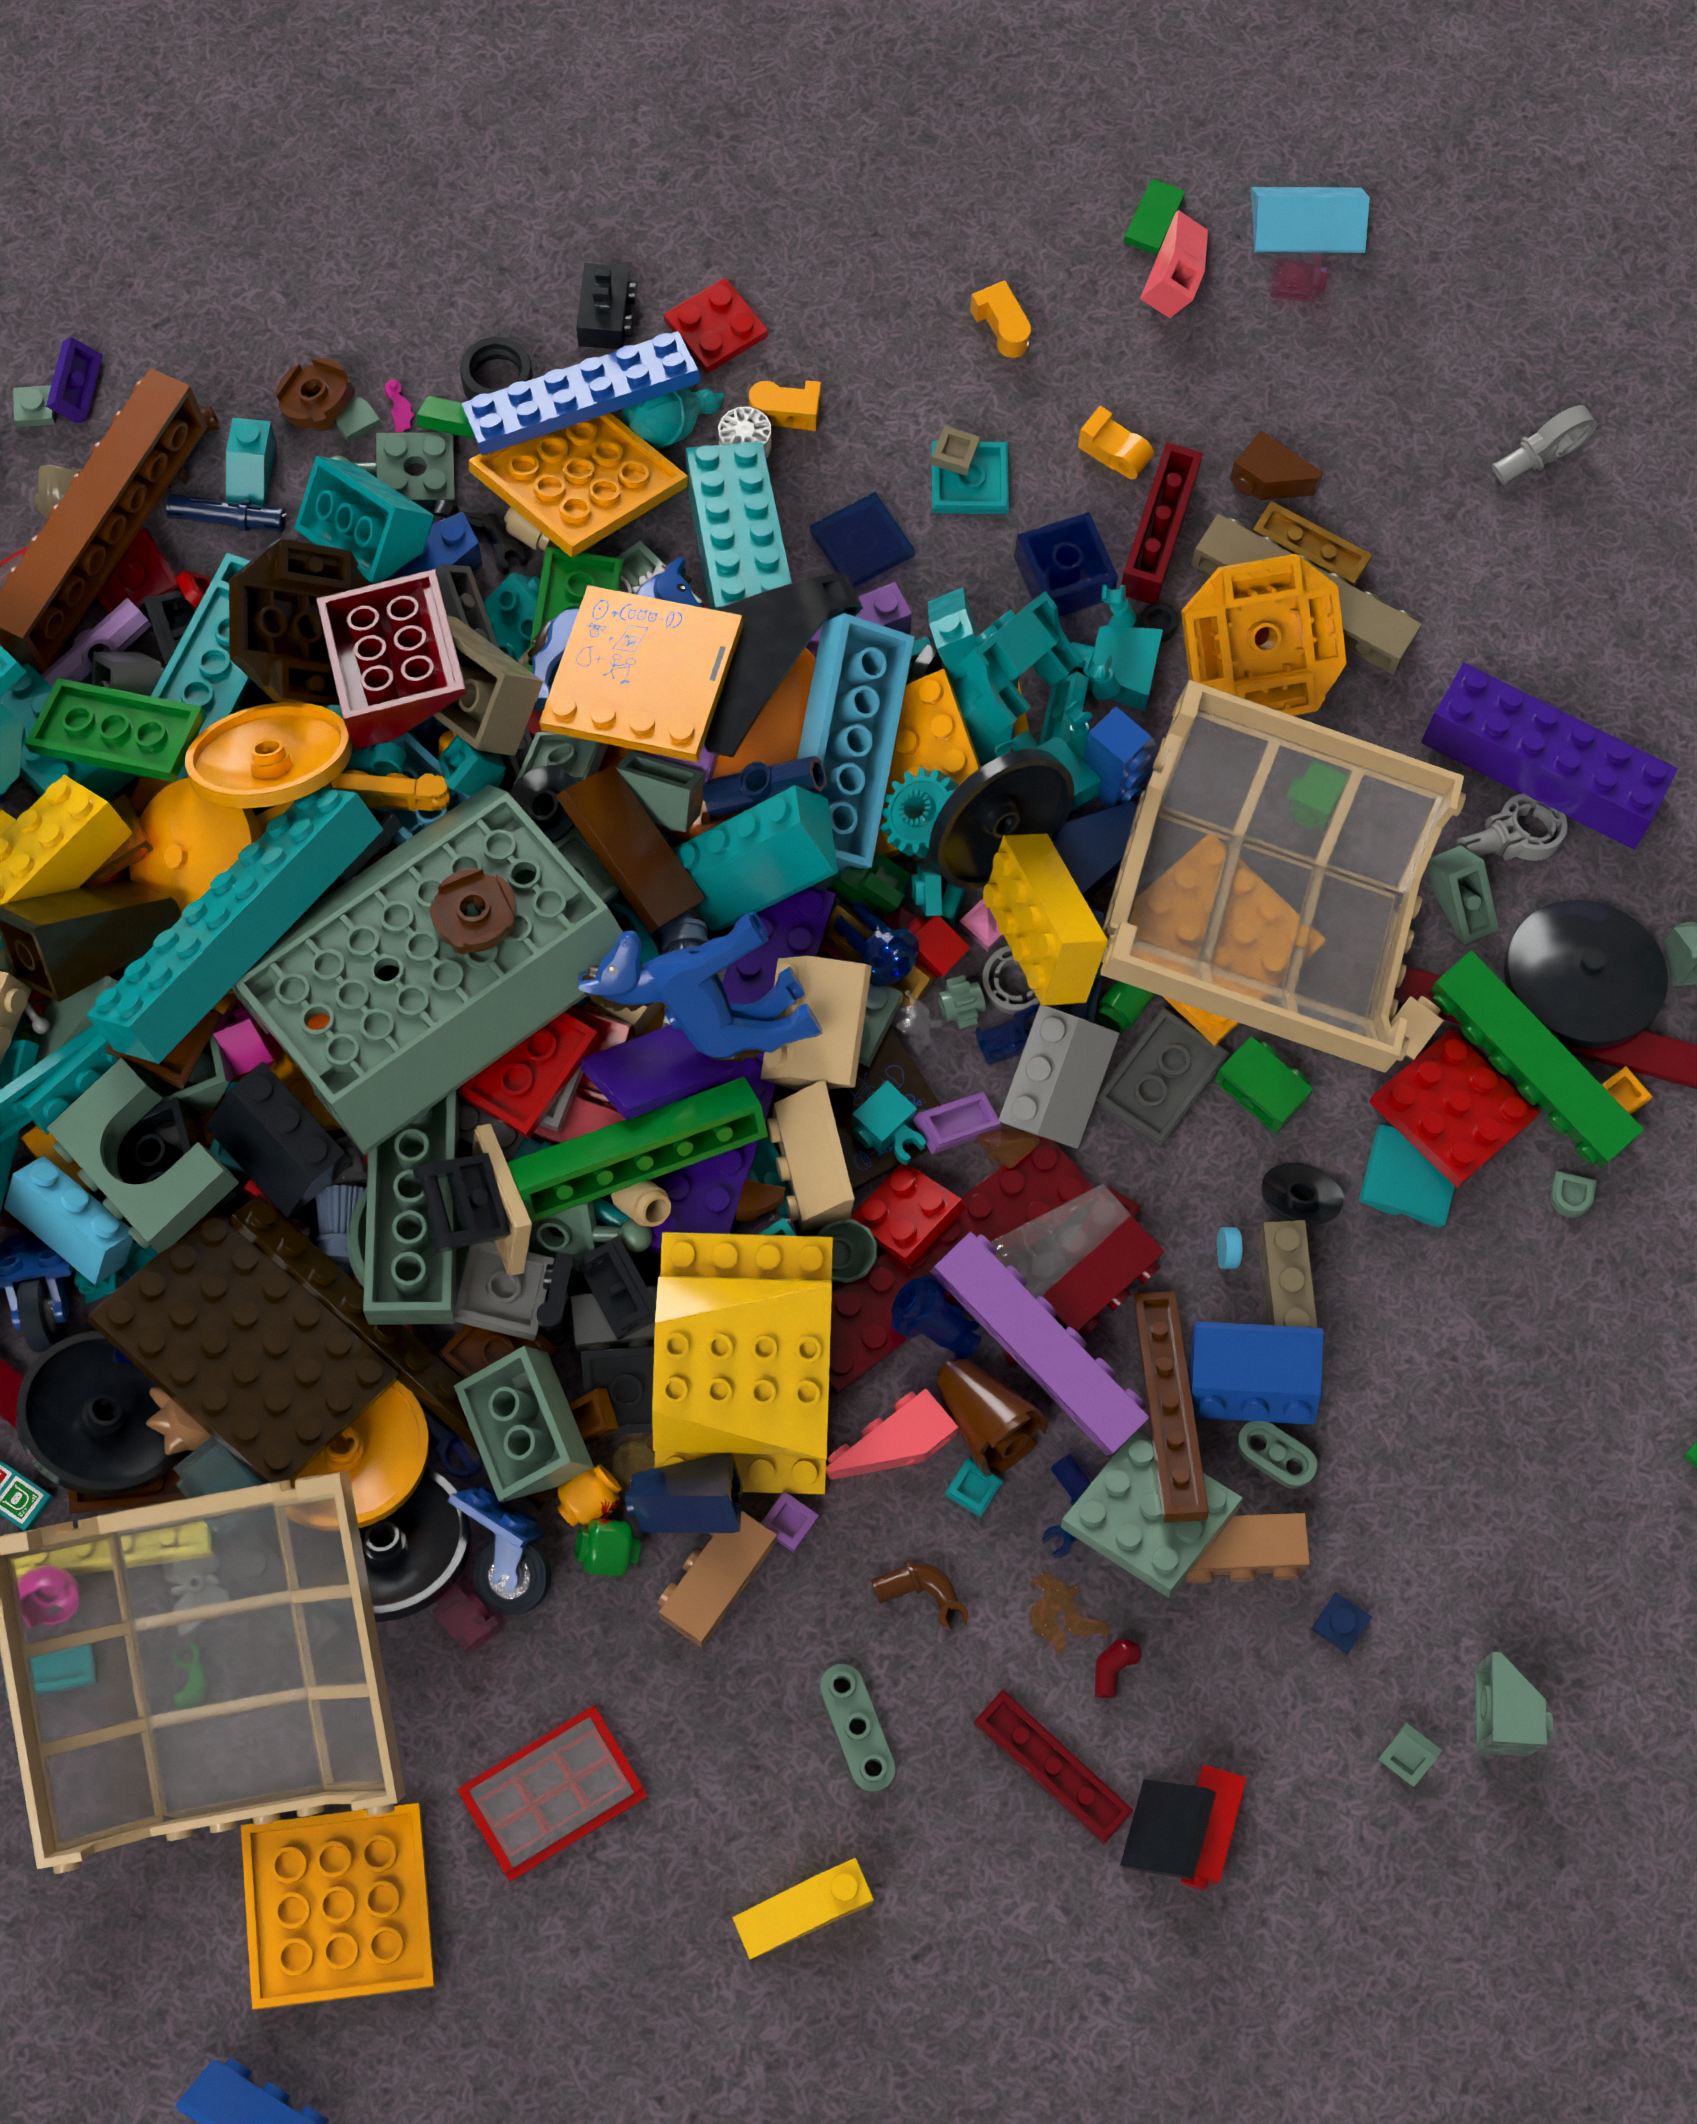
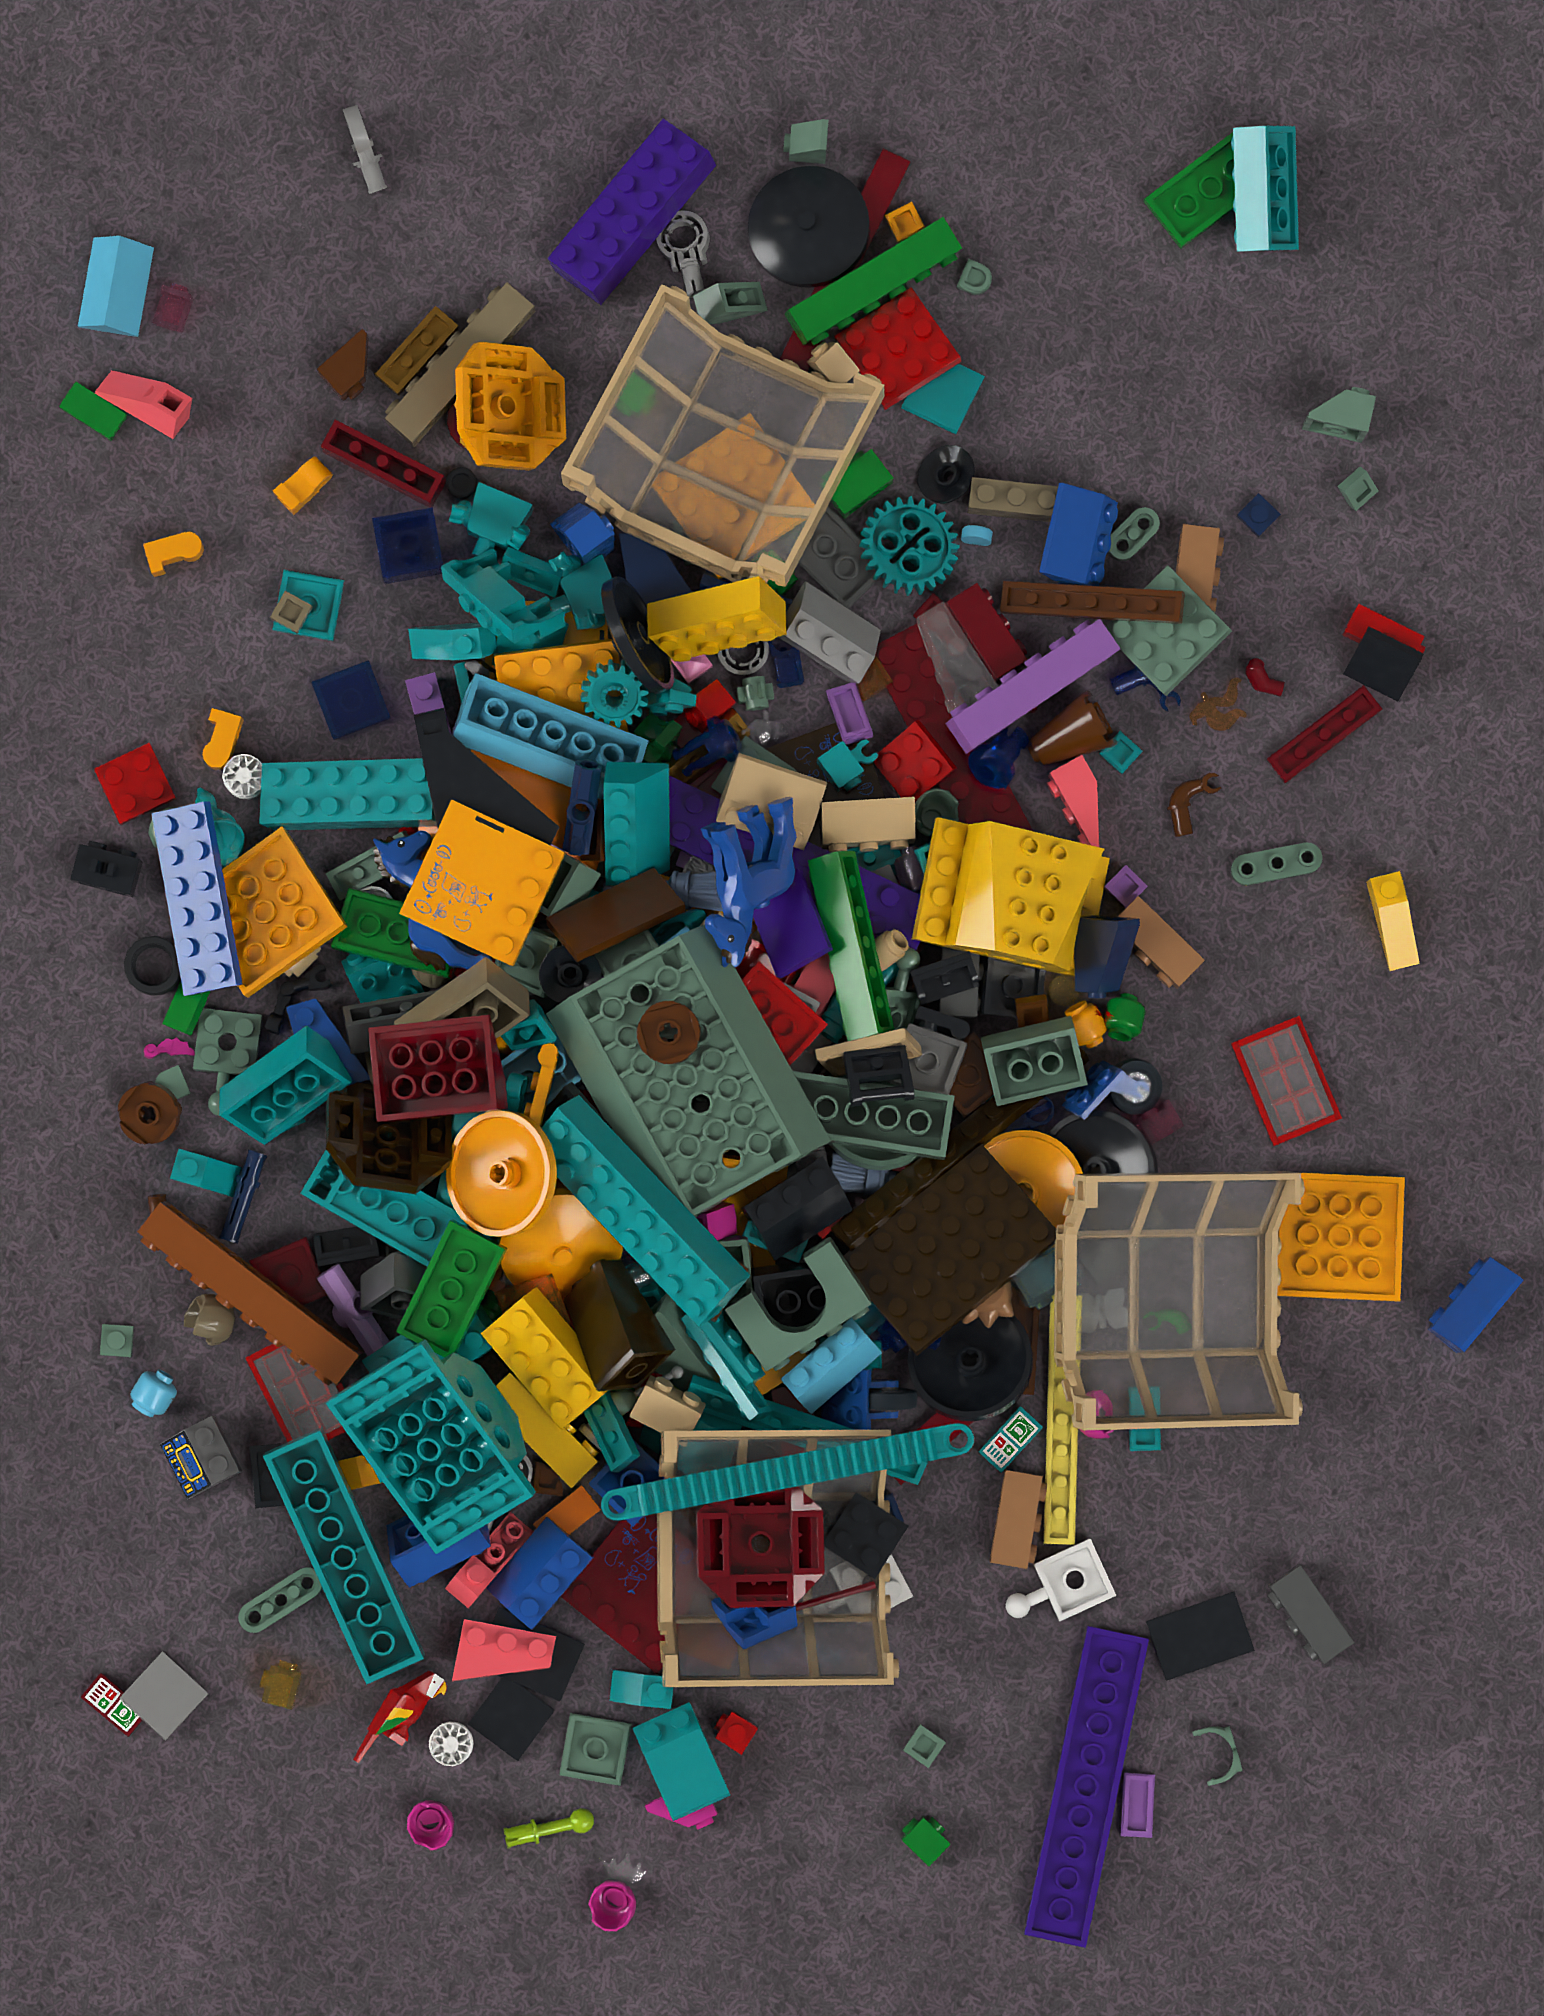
camera: 80 degrees left, 15 degrees up
(74, 380) = (102, 1304): dark purple plate -> none
(193, 586) = (311, 1224): red tile -> none
(758, 1199) = (894, 867): reddish brown tile -> none
(1176, 1191) = (928, 565): none -> teal gear

